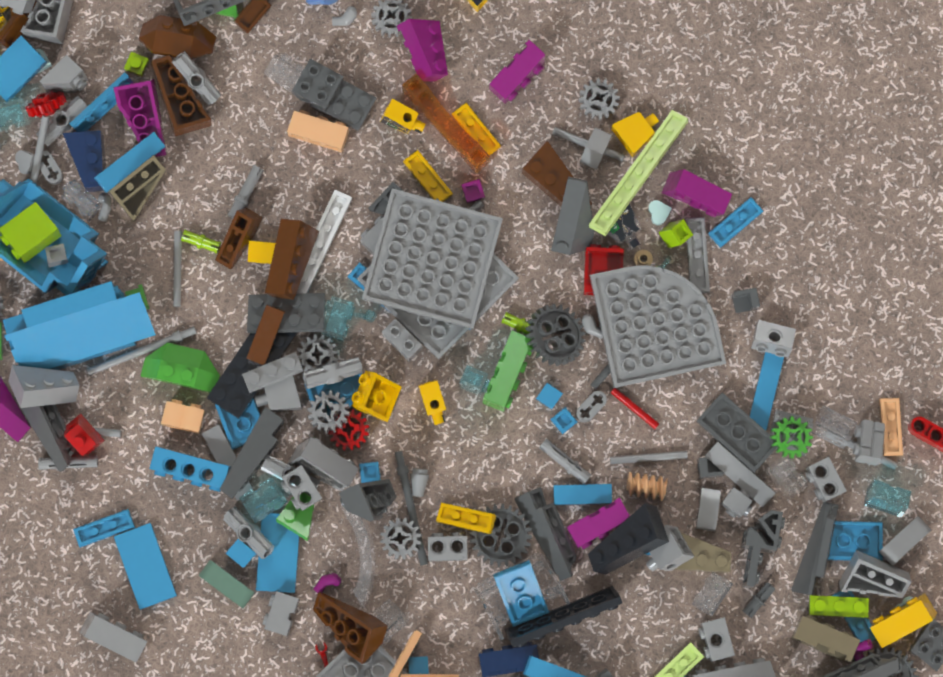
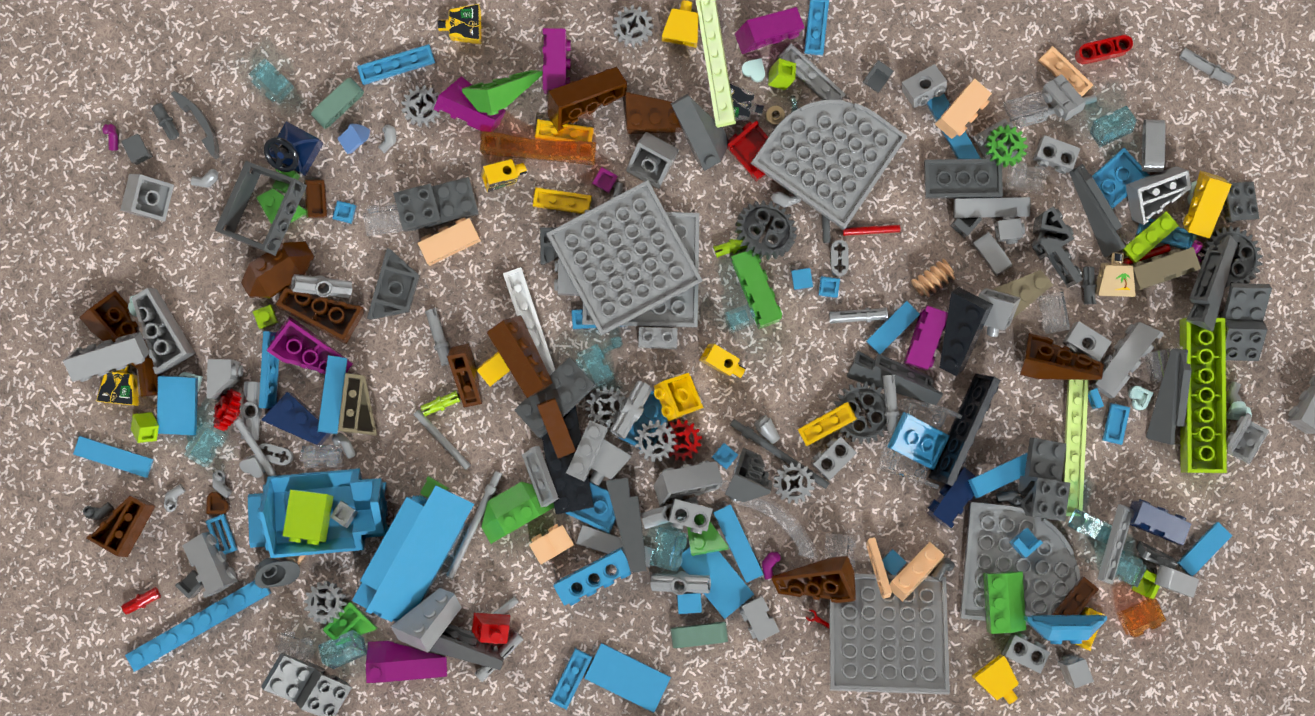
camera: 40 degrees left, 5 degrees up
(221, 360) = (540, 476): none -> light grey plate
(246, 128) = (394, 288): none -> dark grey wing
(264, 41) = (344, 212): none -> dark azure tile
(318, 545) = (738, 543): none -> dark azure tile
(453, 58) = (500, 93): none -> bright green wedge
(515, 116) = (584, 96): none -> reddish brown wedge
(521, 208) = (652, 159): none -> light grey slope
(527, 545) = (891, 403): none -> light grey pin
(583, 142) = (658, 66): light grey bar -> none
(595, 148) = (665, 65): light grey slope -> none
(648, 457) = (915, 255): light grey bar -> none
(675, 626) = (1049, 361): none -> reddish brown wedge
(783, 612) = (1115, 278): none -> tan torso
(786, 382) = (964, 109): none -> light nougat brick
(827, 619) = (1154, 252): none -> red bar

